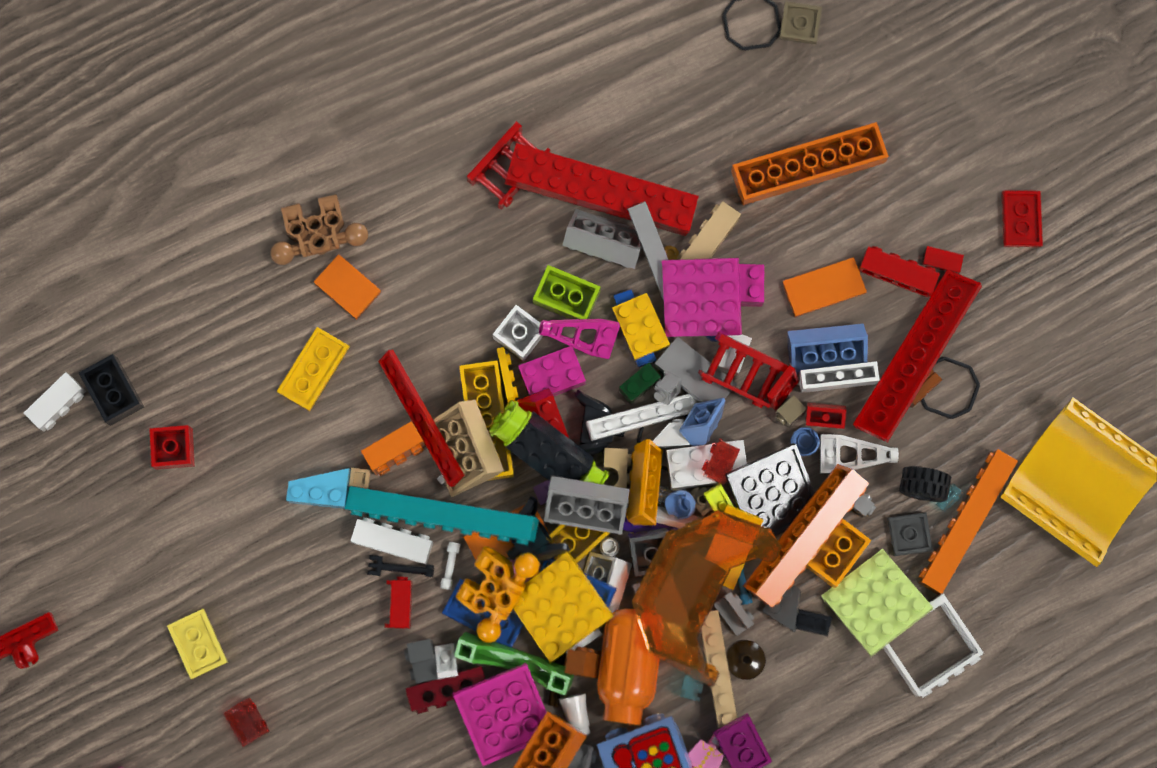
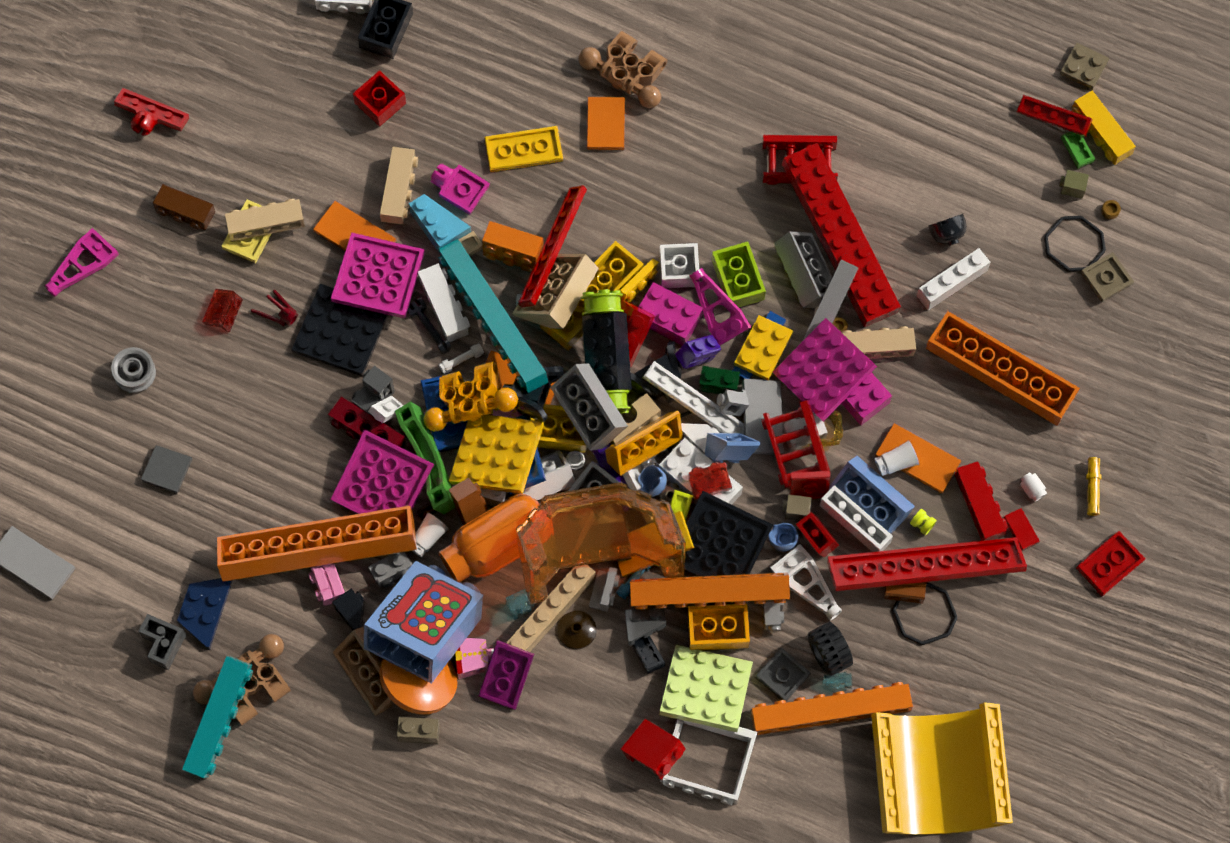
camera: 50 degrees right, 10 degrees down
(129, 682) = (184, 207): none -> reddish brown brick
(199, 627) = (264, 220): none -> tan brick
(260, 494) = (397, 185): none -> tan brick
(271, 563) = (340, 222): none -> orange tile
(295, 673) = (287, 314): none -> dark red plant
(303, 446) = (459, 186): none -> dark pink plate
(325, 575) = (377, 275): none -> dark pink plate
(344, 640) = (339, 333): none -> black plate
(400, 603) = (402, 345): red brick -> none
(604, 379) = (698, 351): none -> dark purple brick
(664, 105) = (949, 230): none -> black cylinder
(706, 136) = (953, 279): none -> white brick
(756, 330) = (836, 419): none -> clear yellow helmet
(817, 304) = (897, 459): none -> white plant
(879, 327) = (920, 518): none -> neon yellow wheel
(893, 683) = (653, 748): none -> red panel
(918, 222) = (1033, 486): none -> white brick
(958, 182) = (1093, 490): none -> yellow pin

